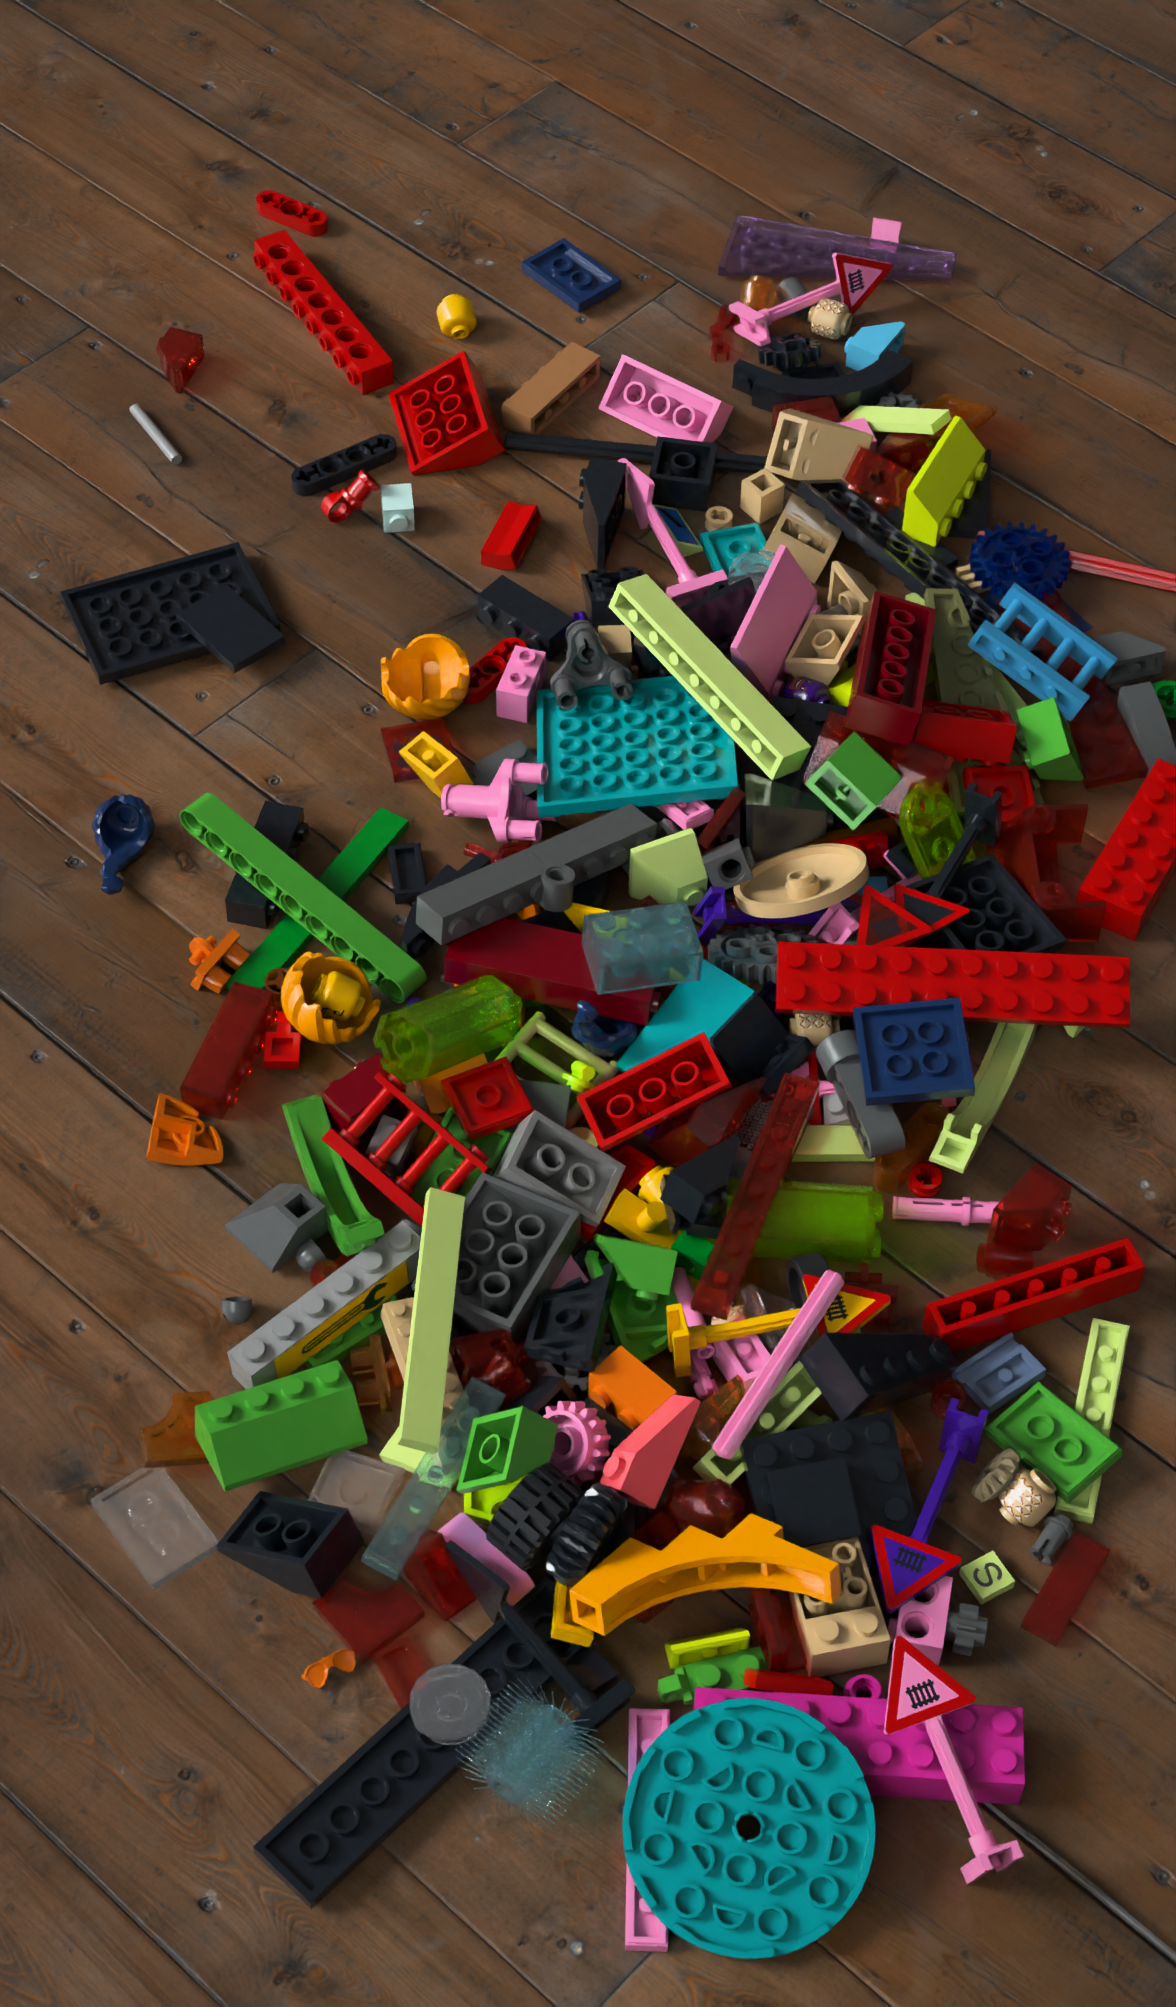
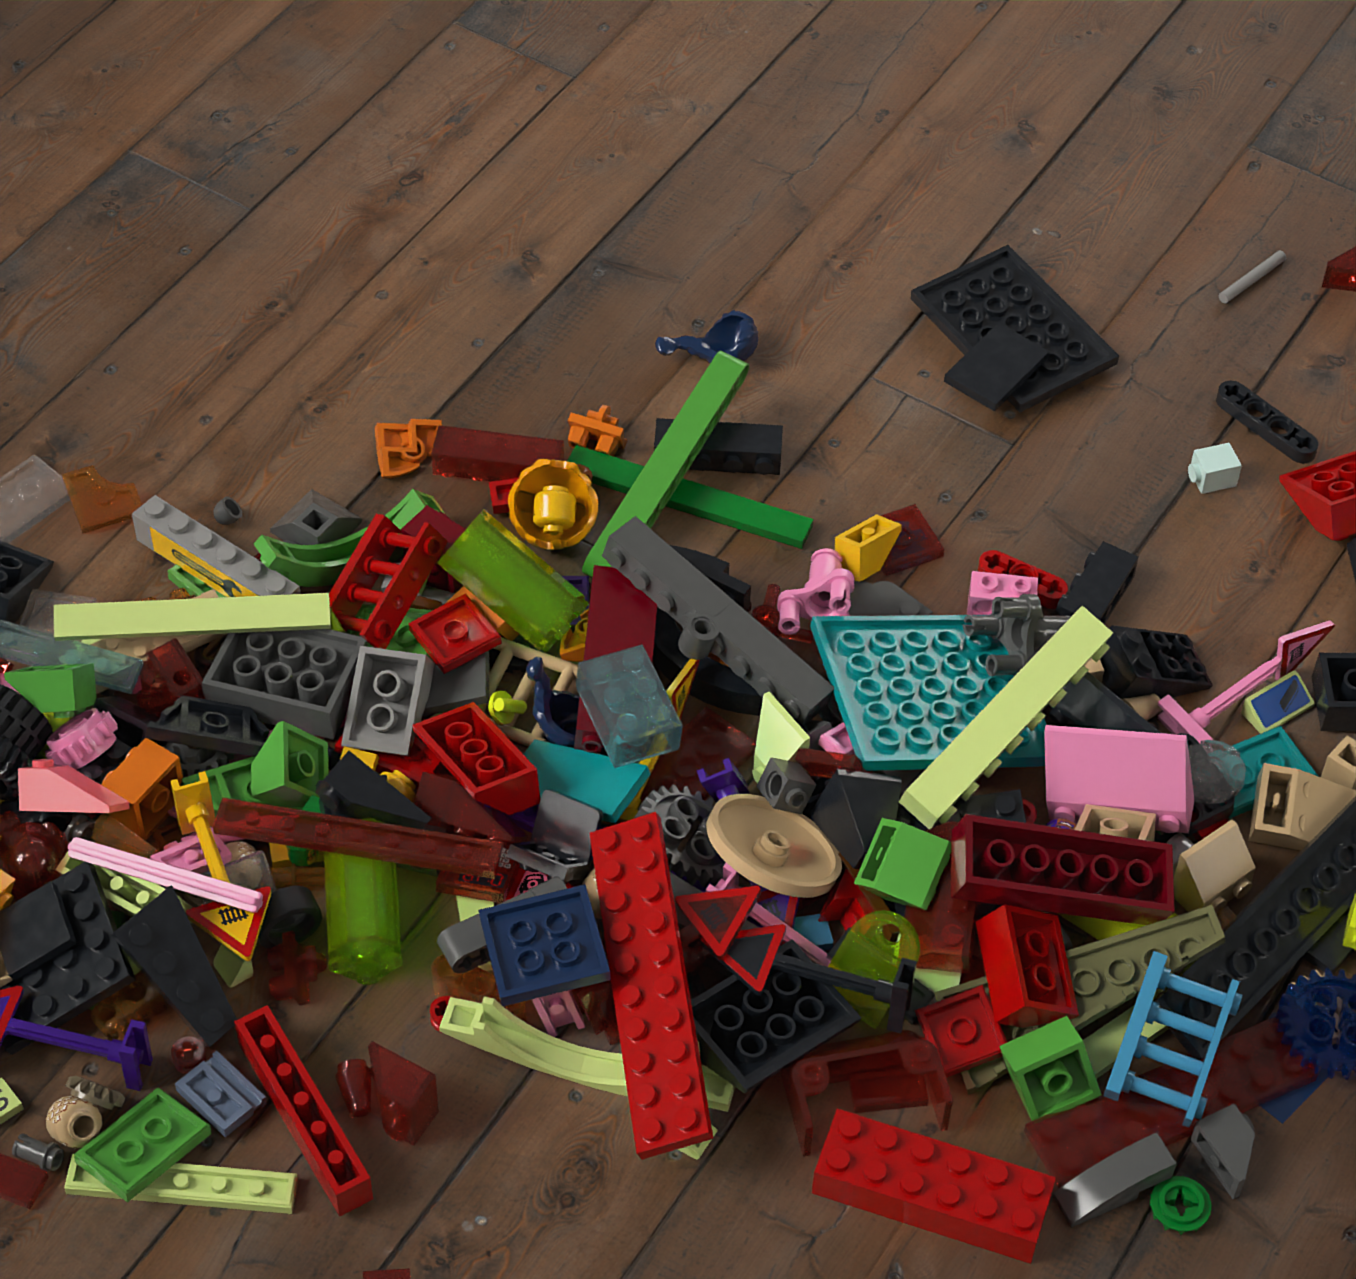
camera: 80 degrees right, 0 degrees up
(279, 1425) = (100, 548): bright green slope -> none
(351, 498) = (1207, 427): red connector -> none
(406, 872) = (745, 553): black tile -> none
(426, 677) = (971, 516): light orange piece -> none
(511, 536) = (1214, 565): red piece -> none
(602, 504) = (1256, 623): black slope -> none
(715, 516) = (1315, 733): tan bush -> none
(932, 1209) = (408, 1000): bright pink pin -> none

